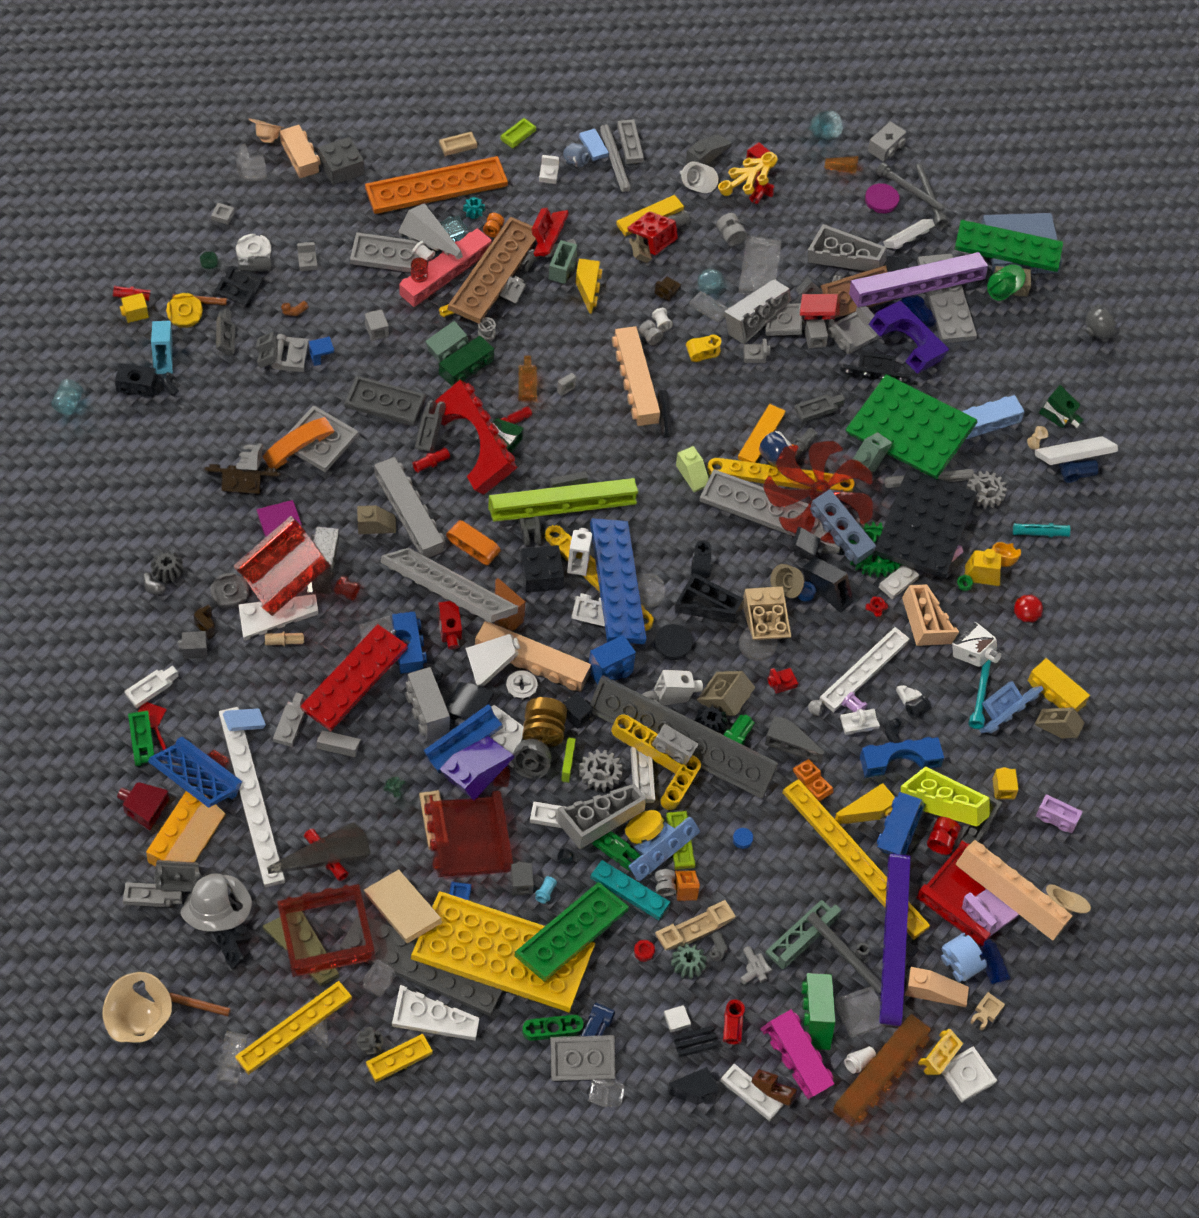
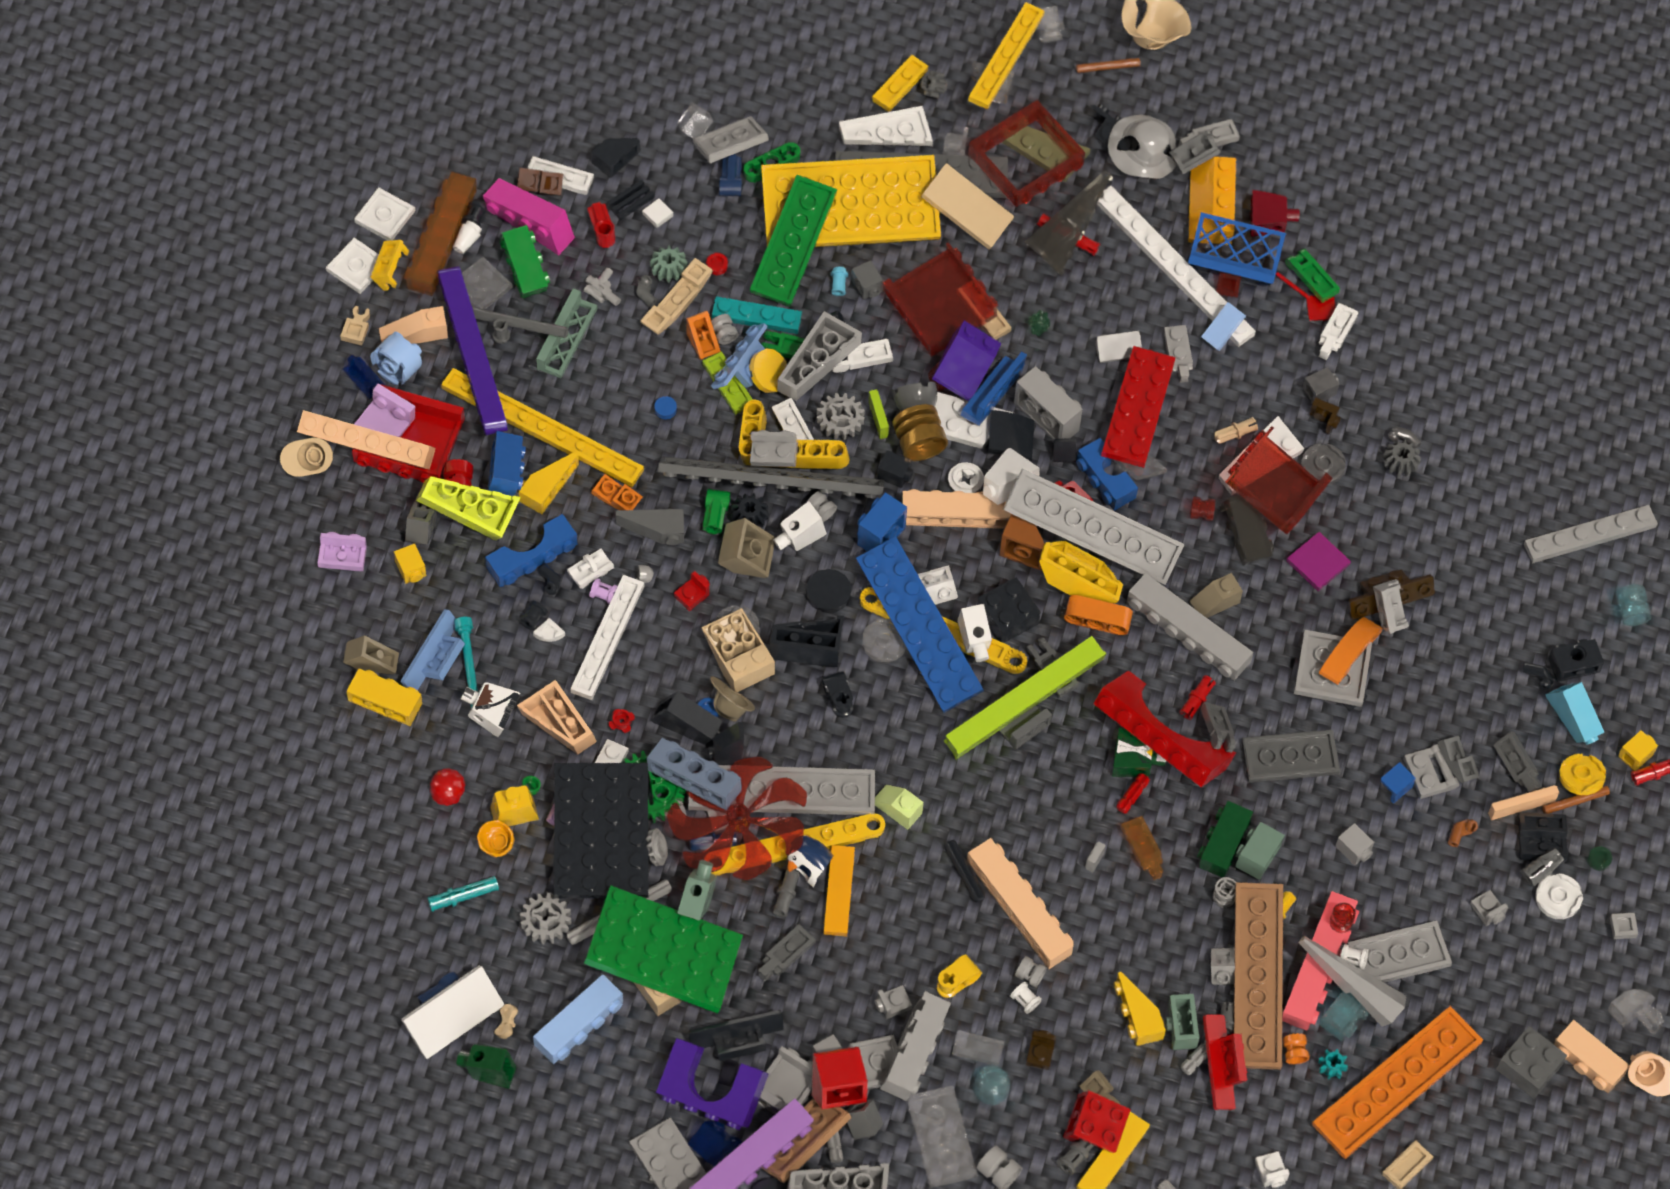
camera: 160 degrees right, 5 degrees up
(59, 463) = (1590, 534): none -> light grey plate
(240, 306) = (1523, 802): none -> light nougat tile
(460, 890) = (921, 250): blue tile -> none
(473, 564) = (1078, 572): none -> yellow wedge
(848, 1071) = (475, 212): none -> black bush
(886, 501) = (657, 847): none -> light grey gear
(926, 1115) = (384, 214): none -> white tile

